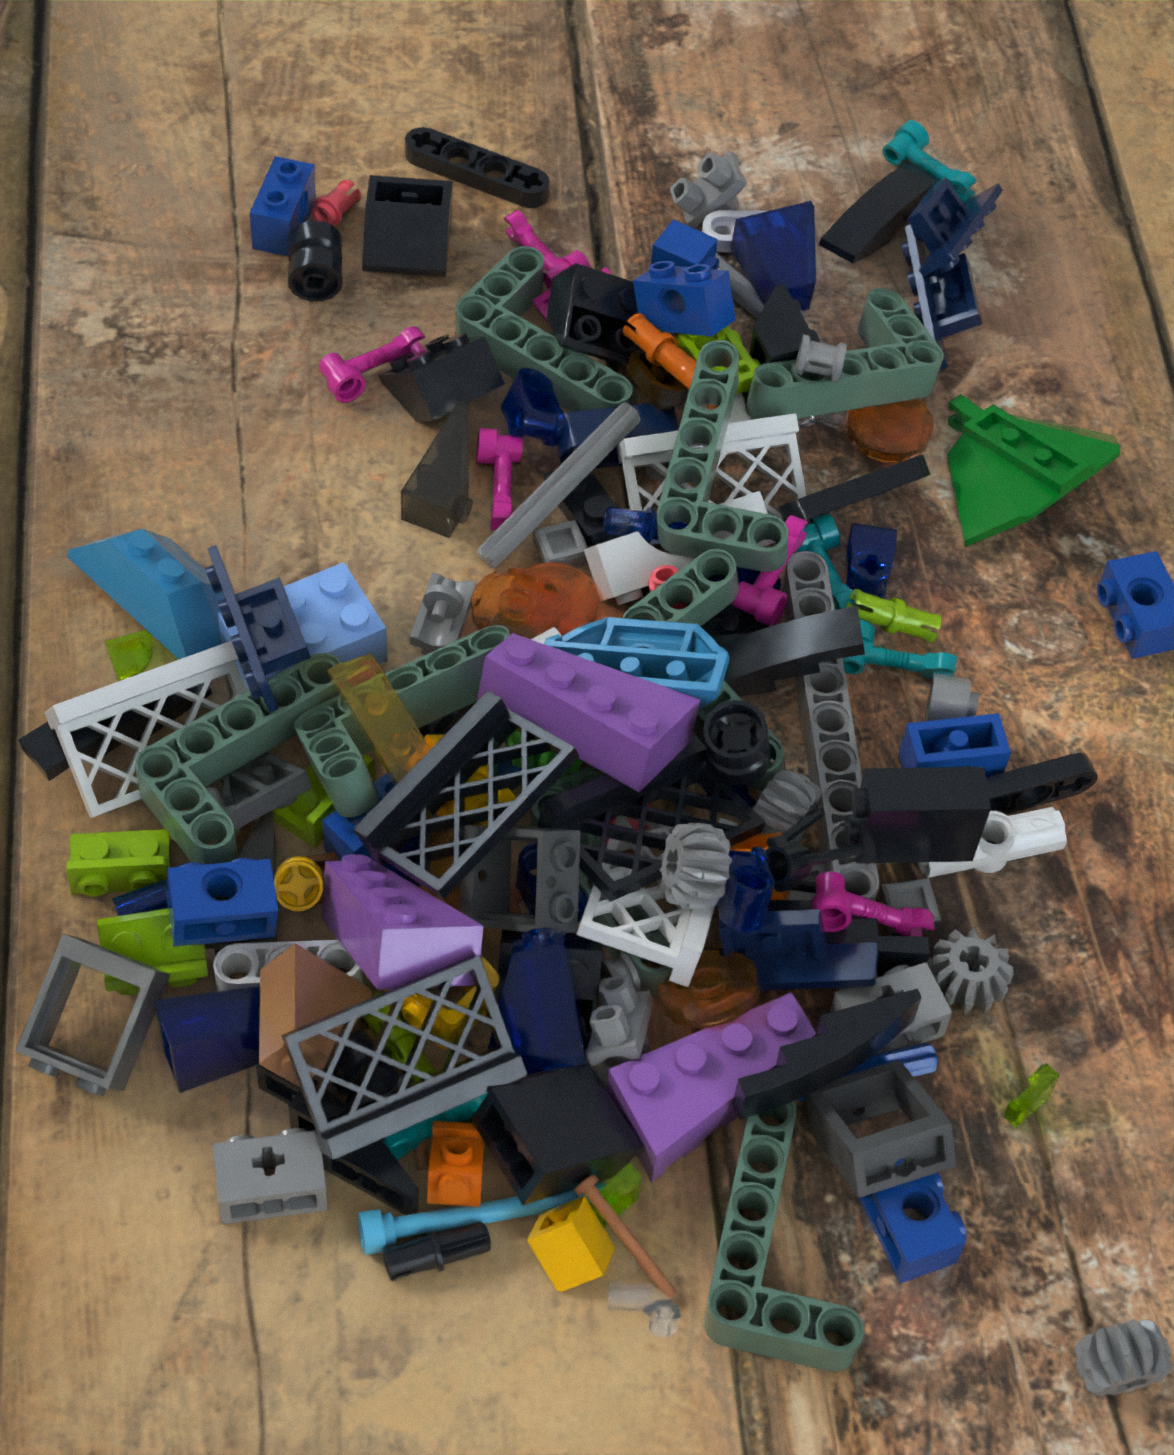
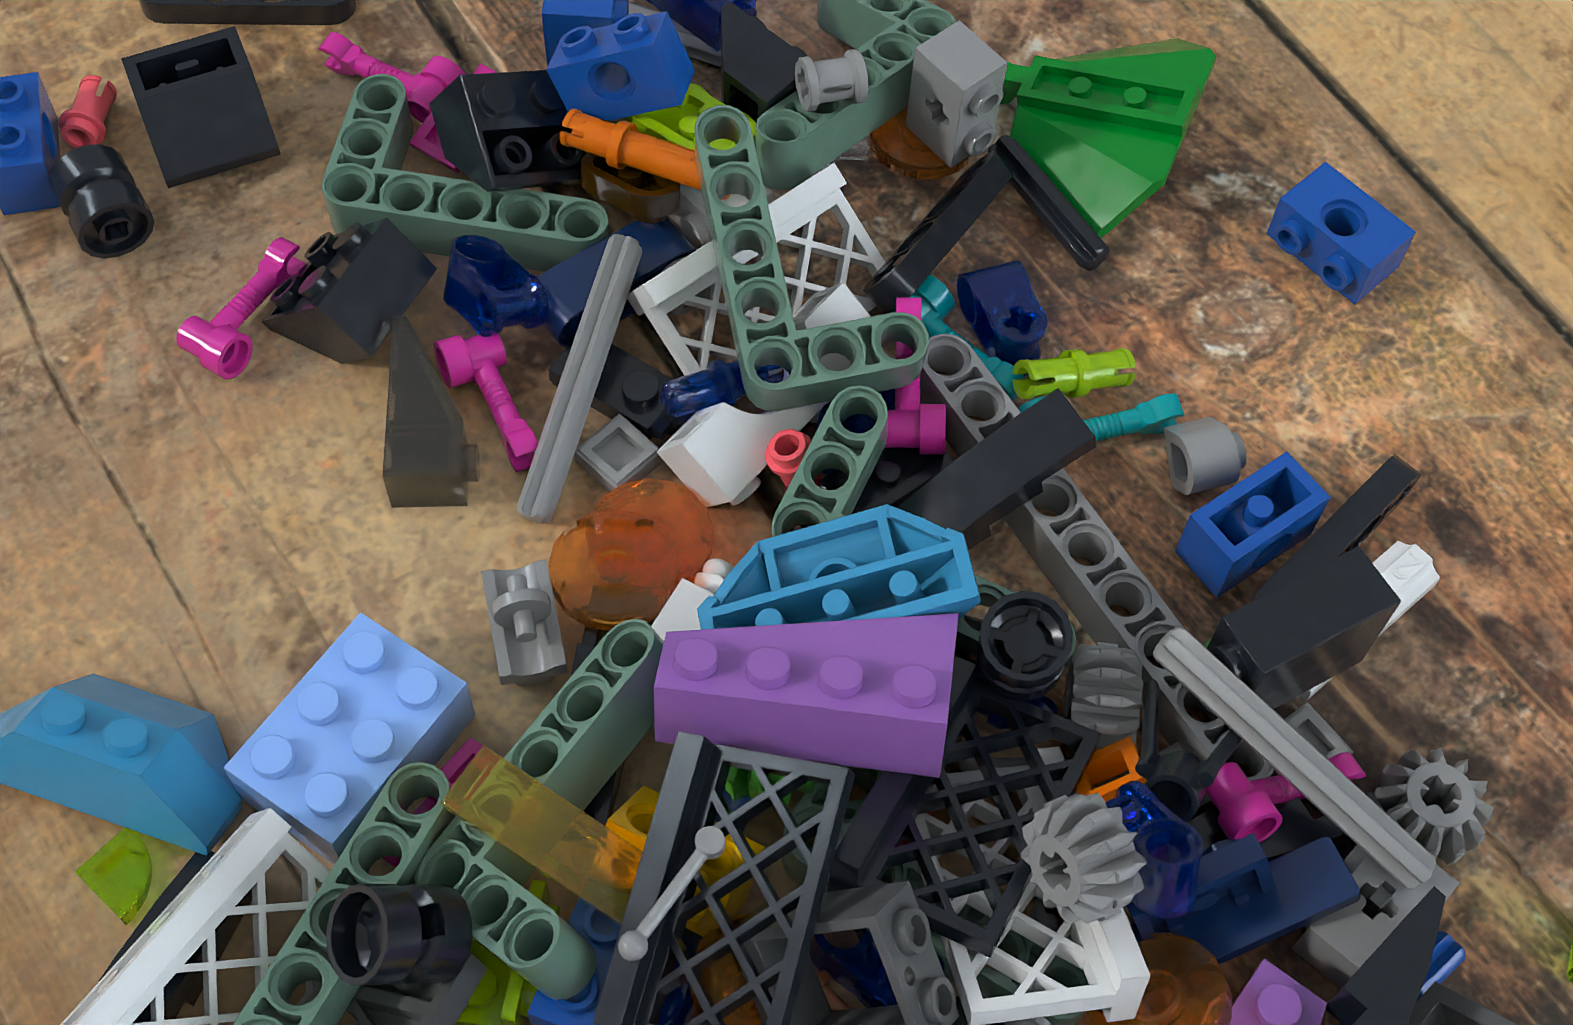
camera: 25 degrees left, 5 degrees up
(265, 626) = (308, 765): dark blue bracket -> none
(268, 734) = (398, 934): none -> black wheel
(471, 759) = (709, 845): none -> light grey hinge
(874, 879) = (1294, 758): none -> light grey axle
(911, 404) = (955, 94): none -> light grey brick
(948, 506) = (1051, 205): none -> black axle

